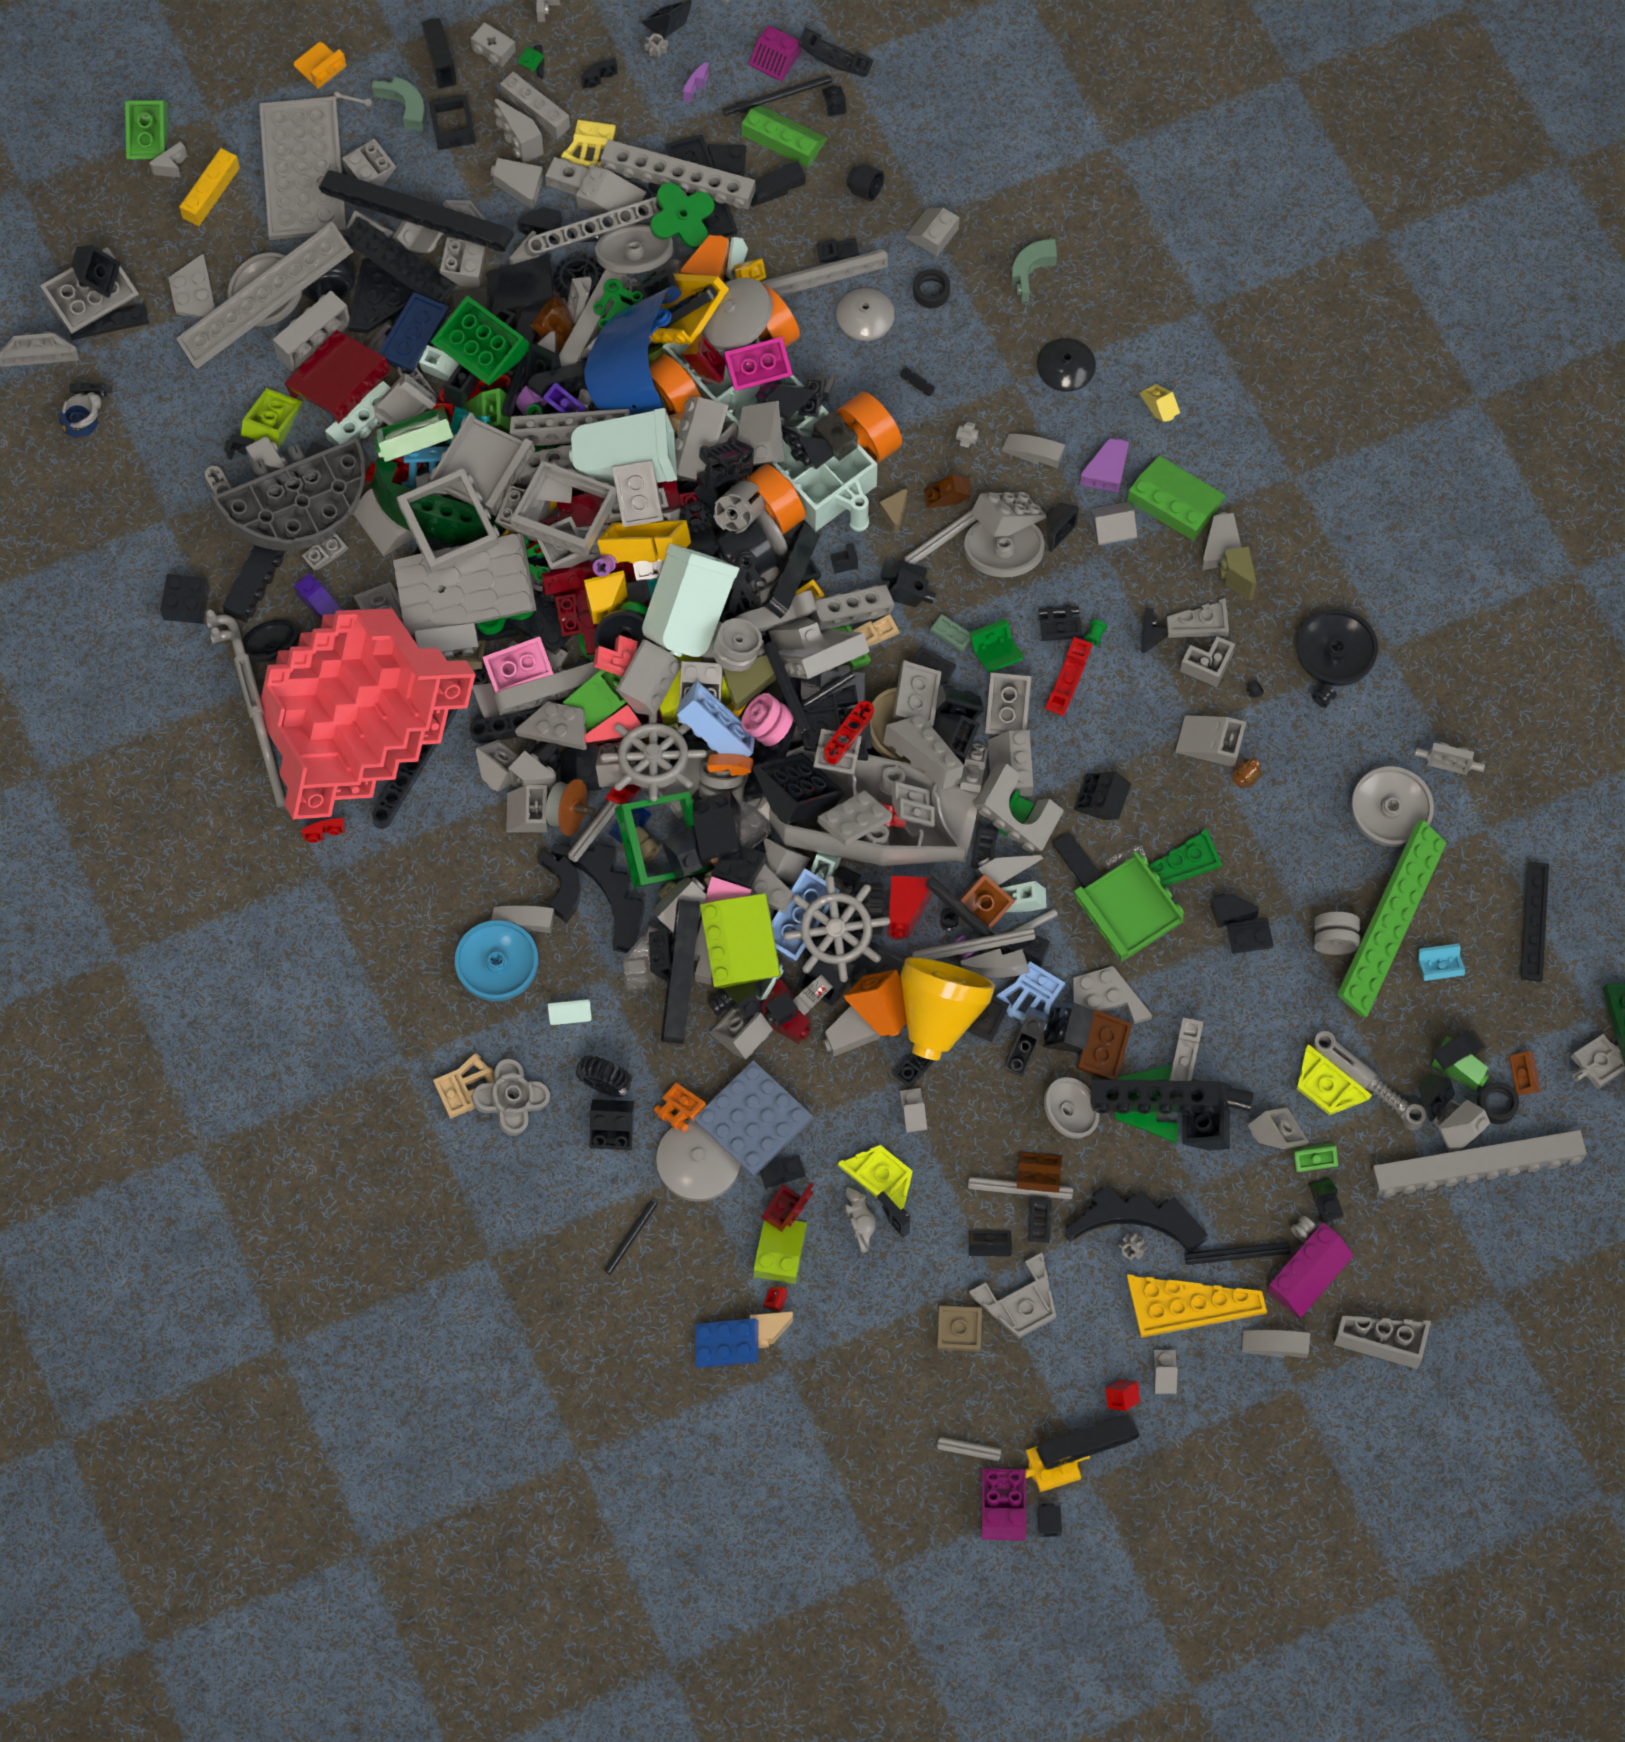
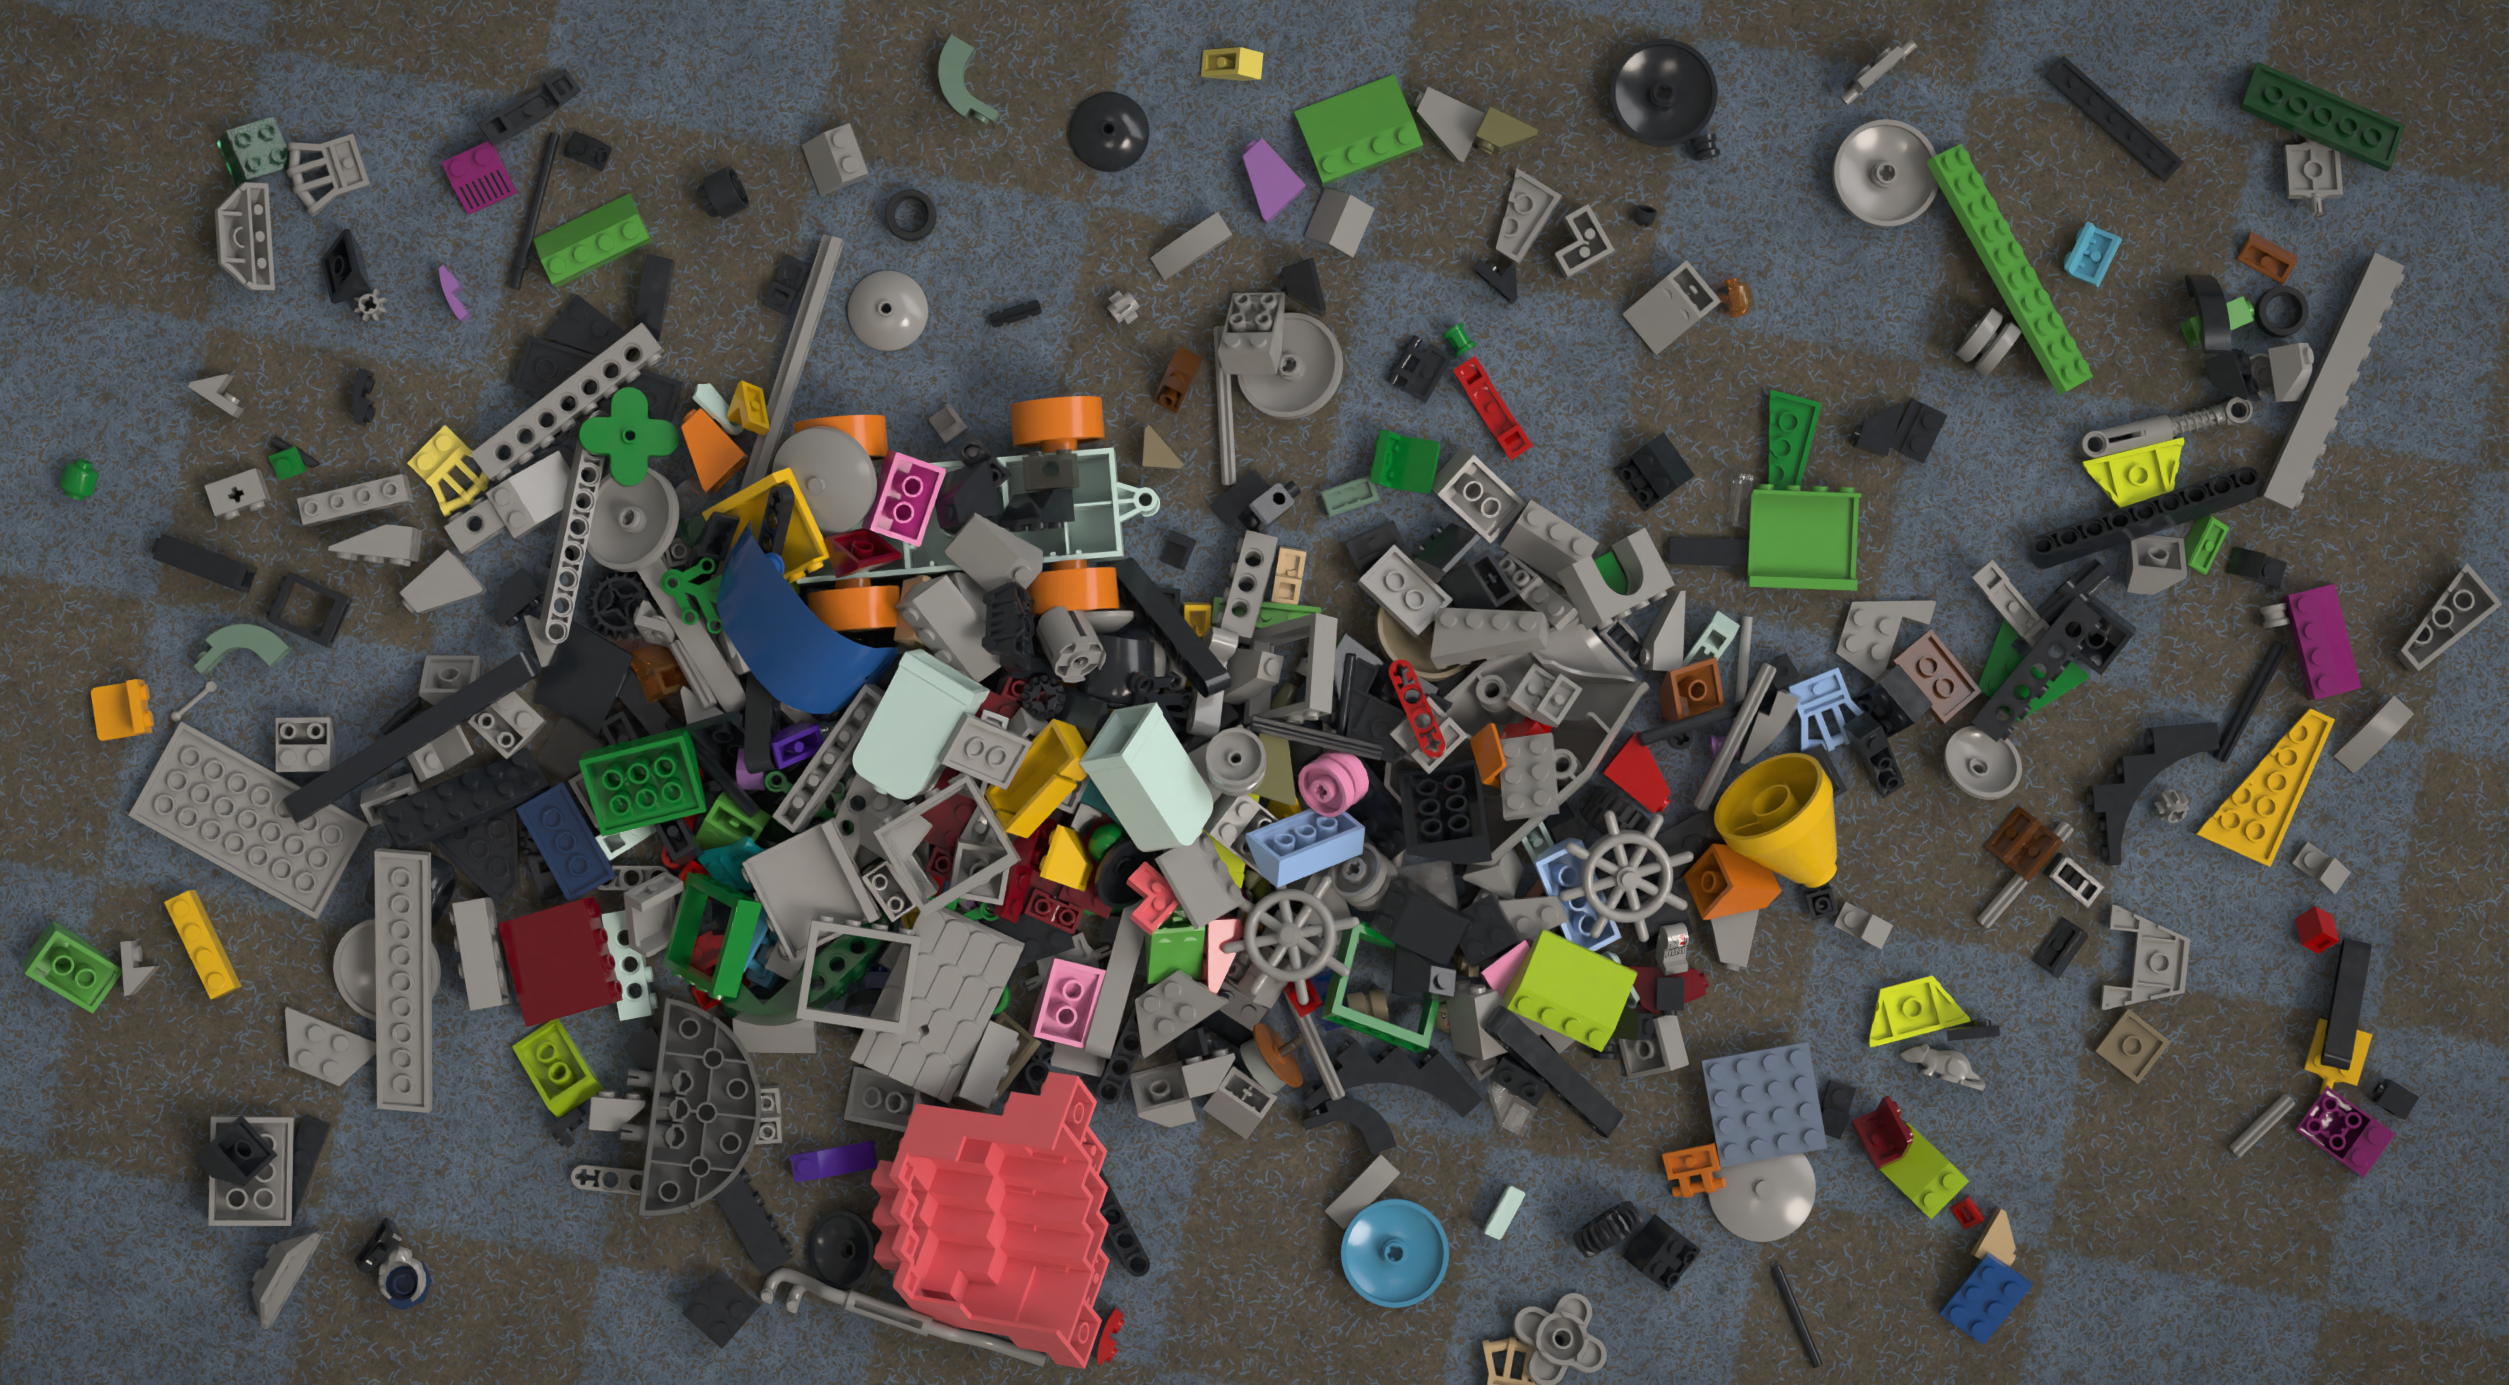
camera: 55 degrees left, 20 degrees up
(563, 335) = (693, 675): none -> light grey axle
(598, 566) = (1037, 839): medium lavender bush -> none
(736, 763) = (1363, 855): orange slope -> none
(850, 791) = (1488, 755): none -> orange panel
(1303, 1105) = (2136, 527): none -> black beam

